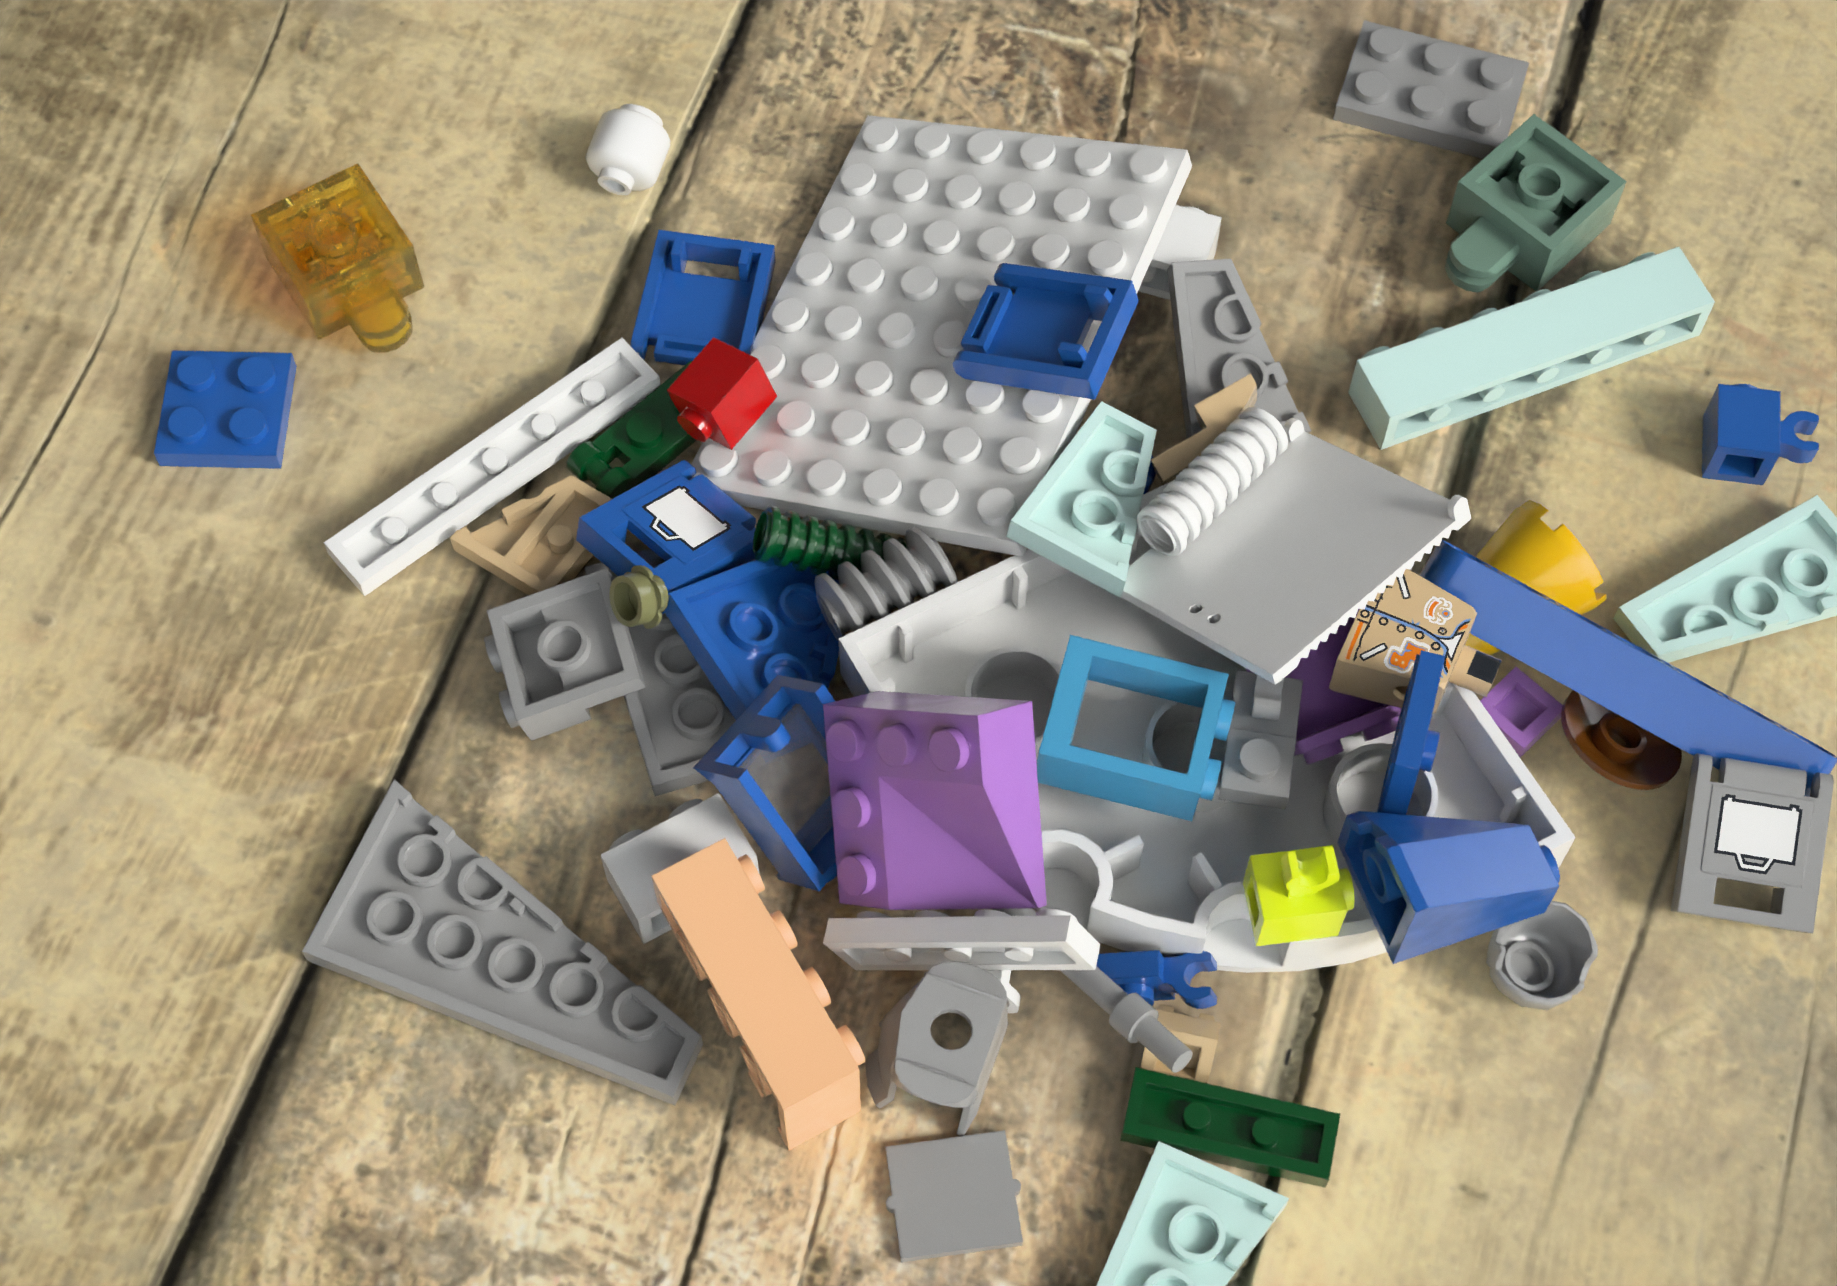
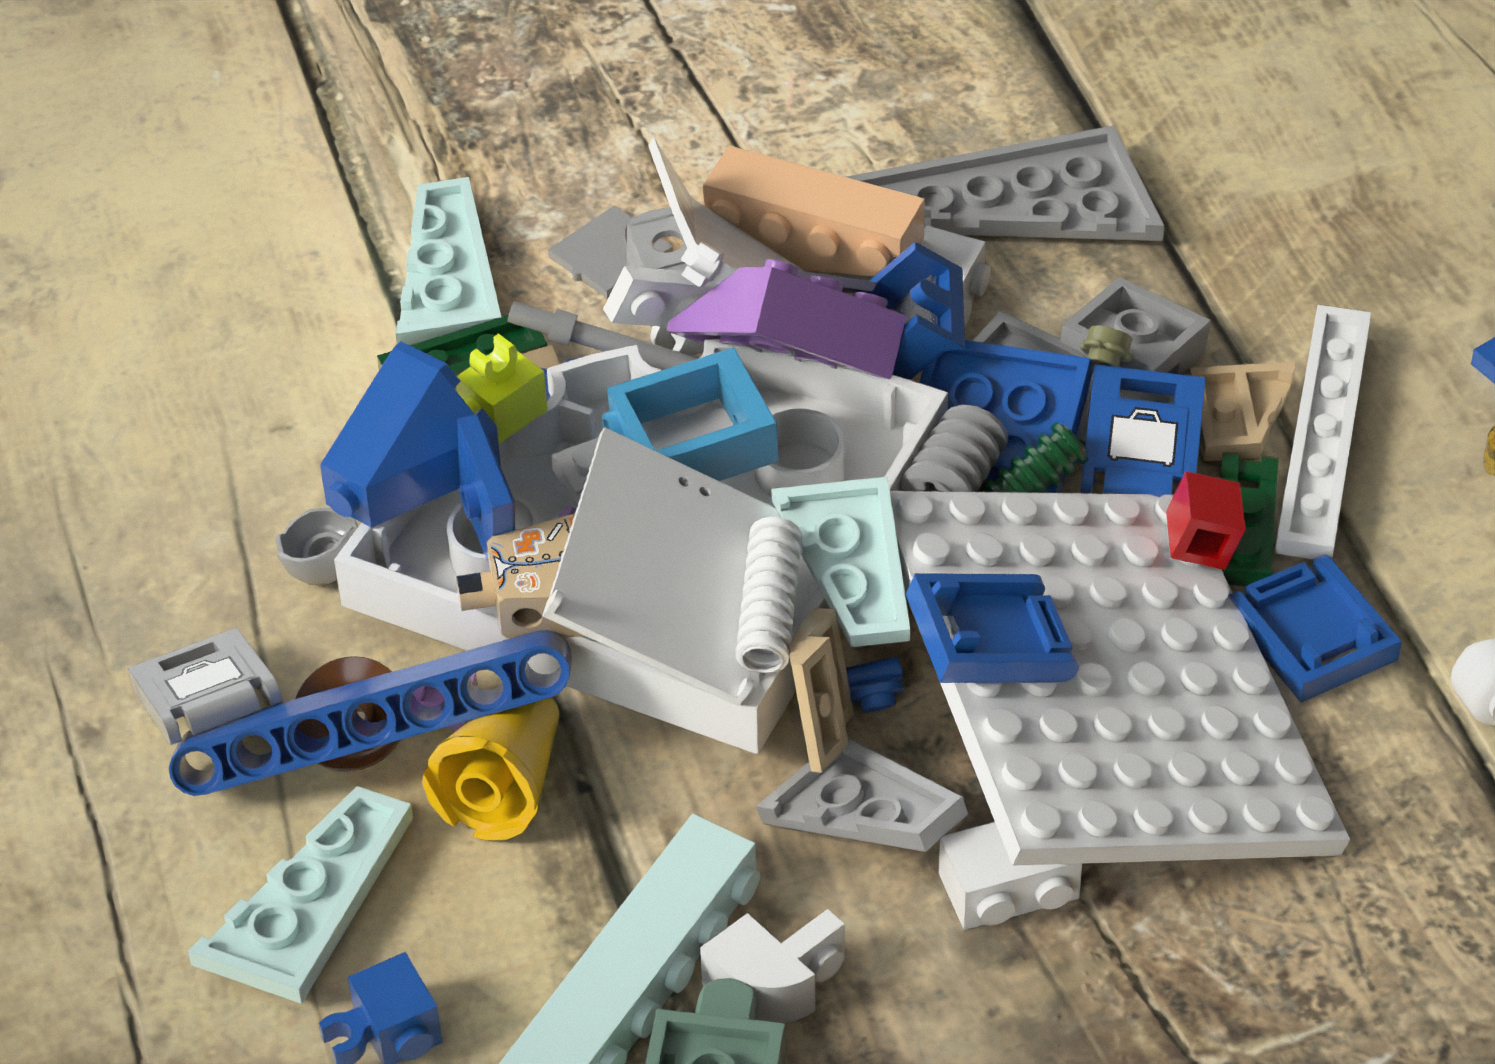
camera: 145 degrees right, 15 degrees down
(897, 918) = (715, 244): none -> white panel
(1412, 273) = (777, 972): none -> white brick

